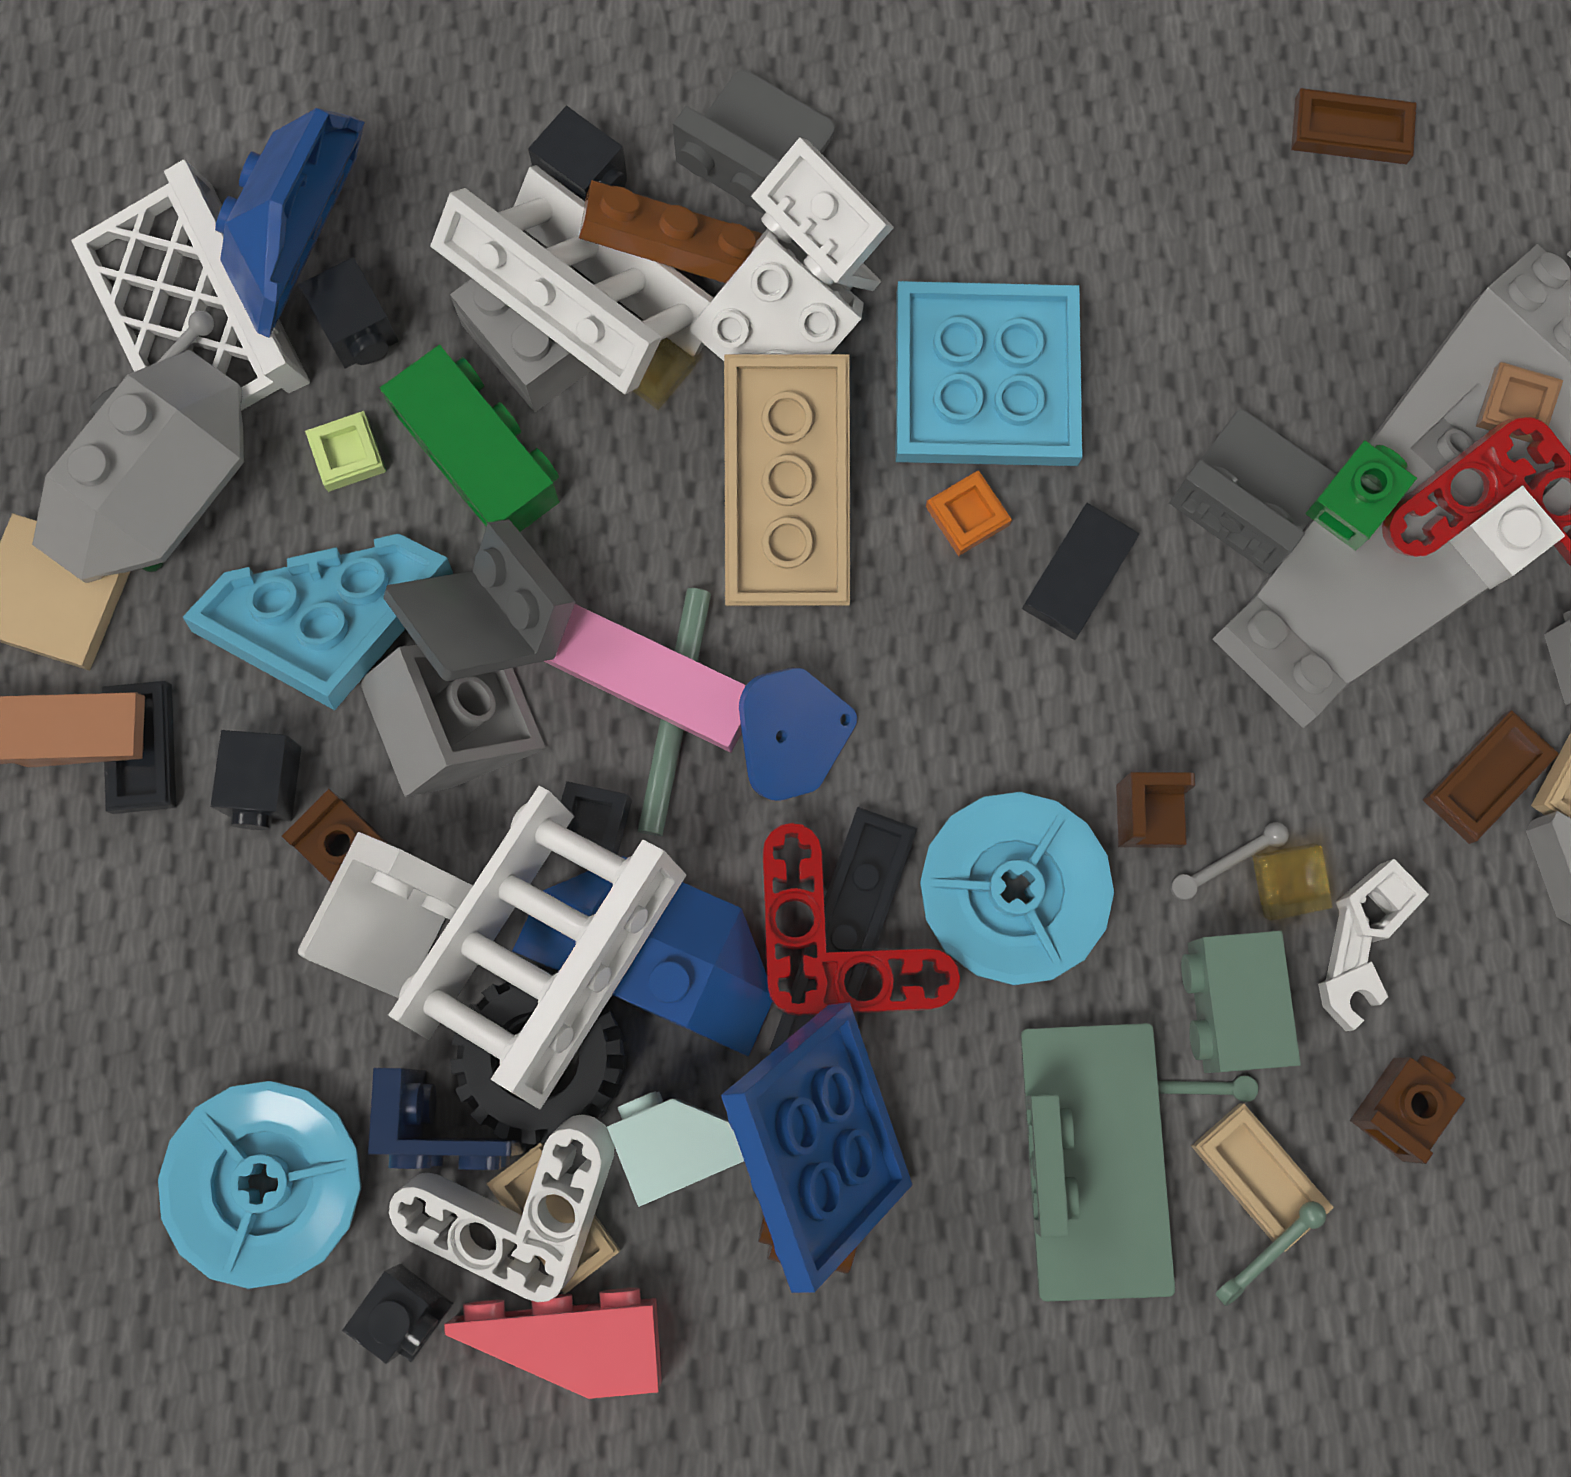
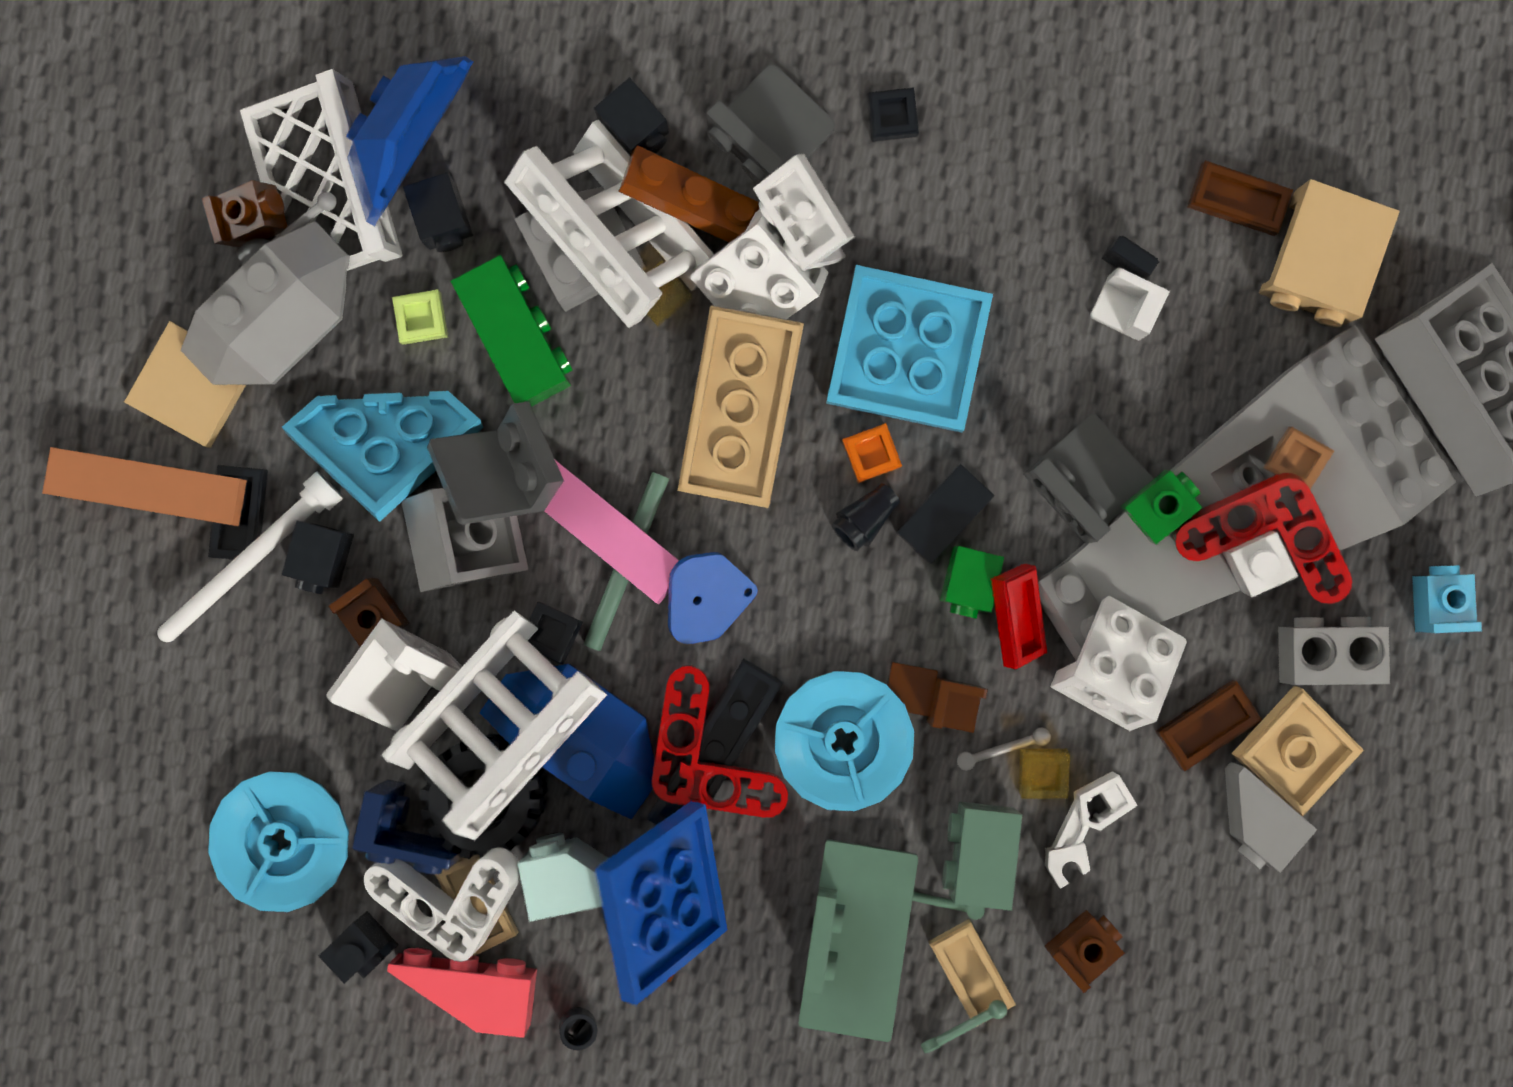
camera: 20 degrees right, 10 degrees up
(94, 356) = (245, 213): none -> reddish brown brick
(243, 702) = (315, 497): none -> white piece
(742, 1374) = (584, 1033): none -> black hinge
(903, 104) = (893, 114): none -> black tile
(977, 594) = (864, 518): none -> black cone
(1092, 798) = (913, 686): none -> reddish brown tile
(1138, 645) = (969, 581): none -> green brick
(1211, 675) = (1019, 616): none -> red tile
(1240, 215) = (1130, 257): none -> black tile
(1252, 268) = (1129, 304): none -> white panel
(1361, 719) = (1123, 666): none -> white bracket
(1484, 165) = (1330, 254): none -> tan panel

